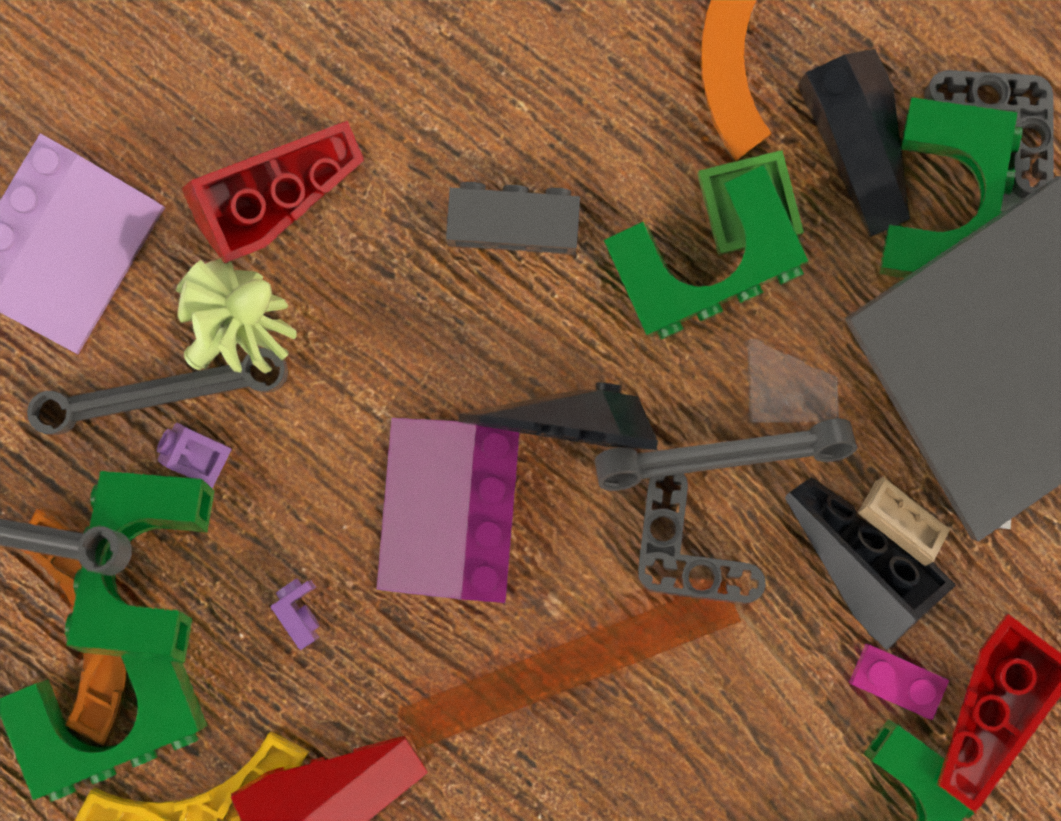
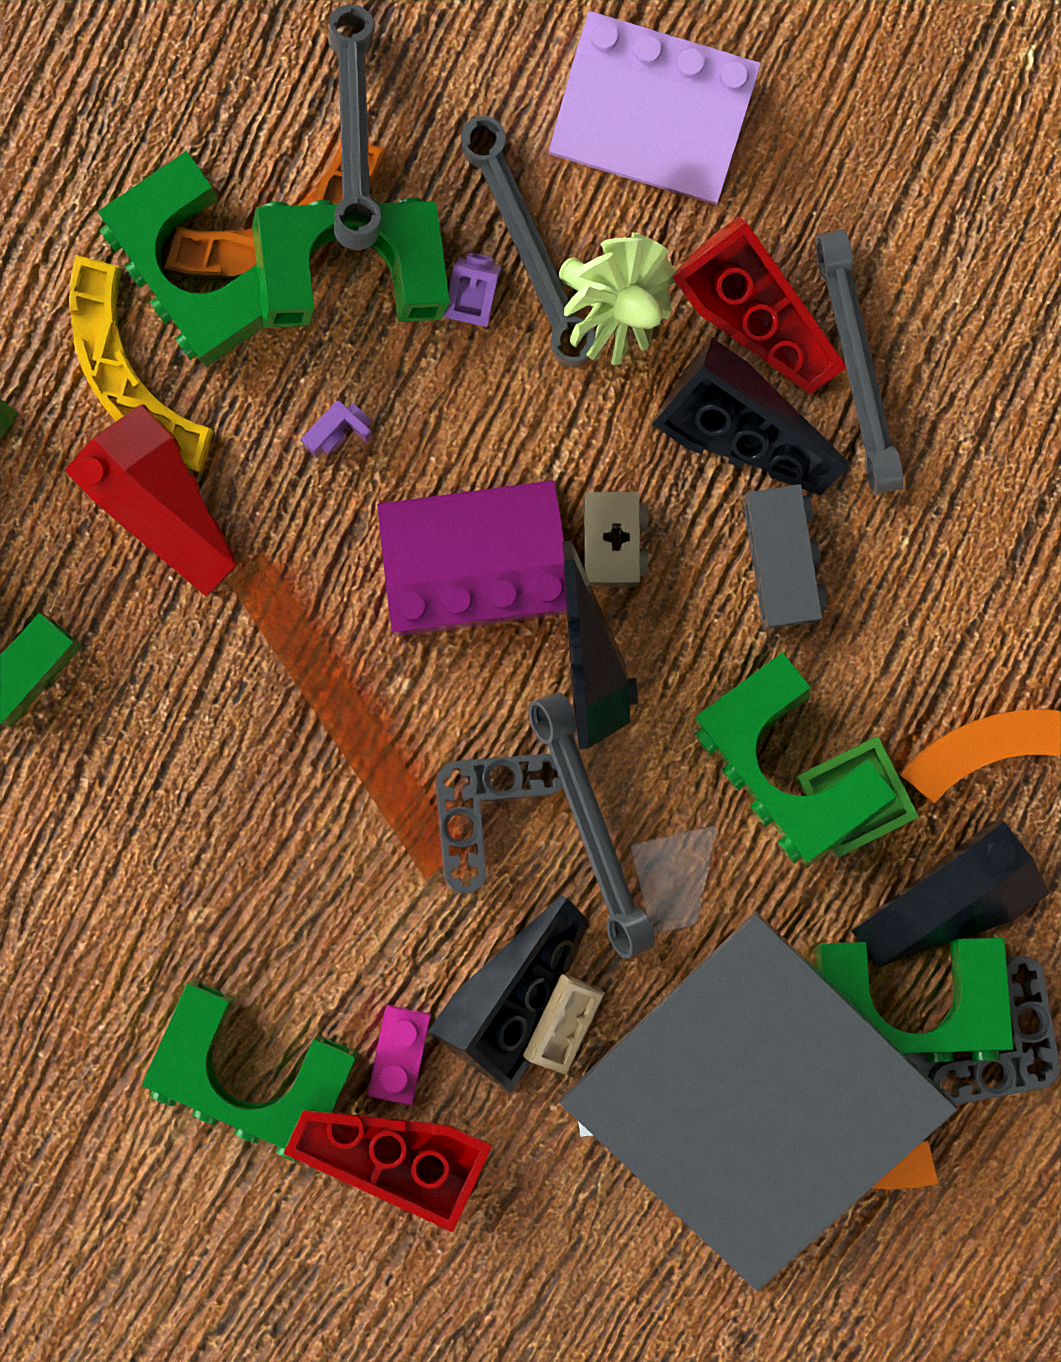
camera: 75 degrees right, 0 degrees up
(249, 108) = (881, 457): none -> dark grey piece
(369, 230) = (737, 414): none -> black wedge
(436, 381) = (614, 512): none -> dark tan brick

